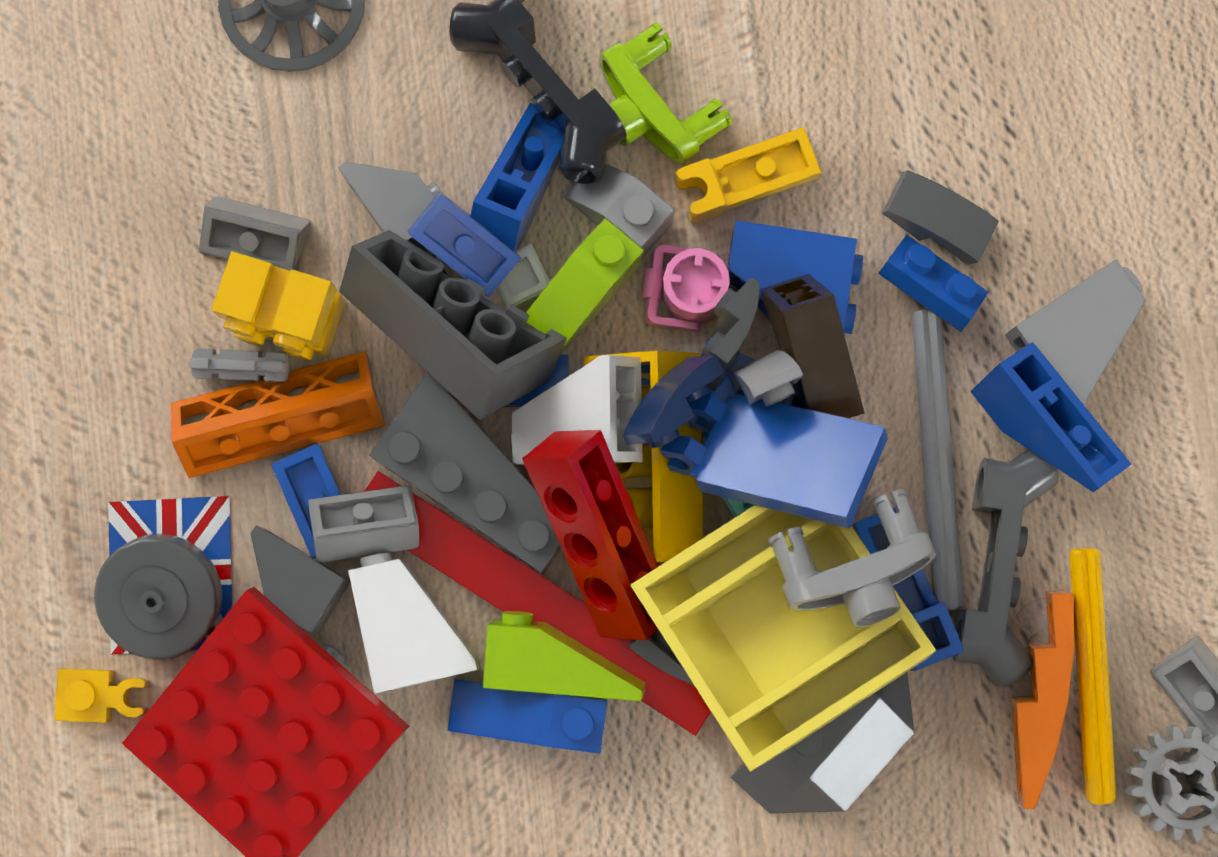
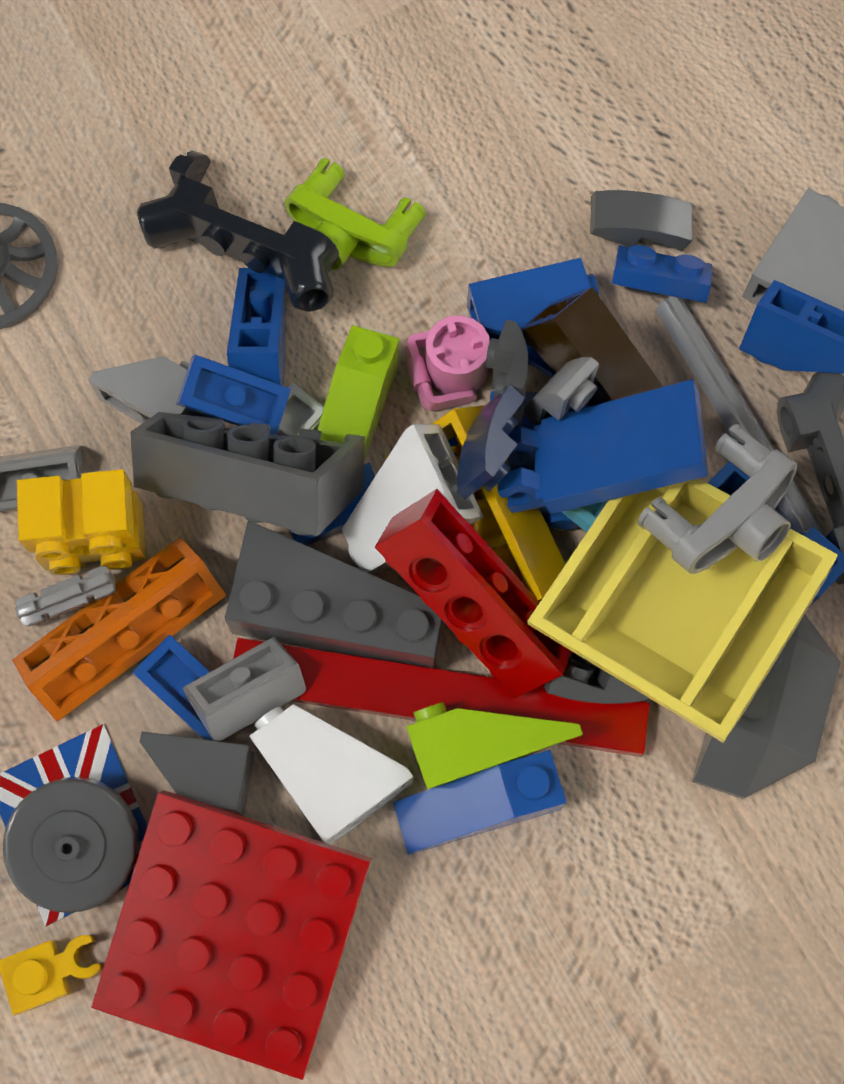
camera: 25 degrees left, 10 degrees down
(626, 205) = (363, 306): light grey slope -> none
(749, 174) = (458, 250): yellow plate -> none

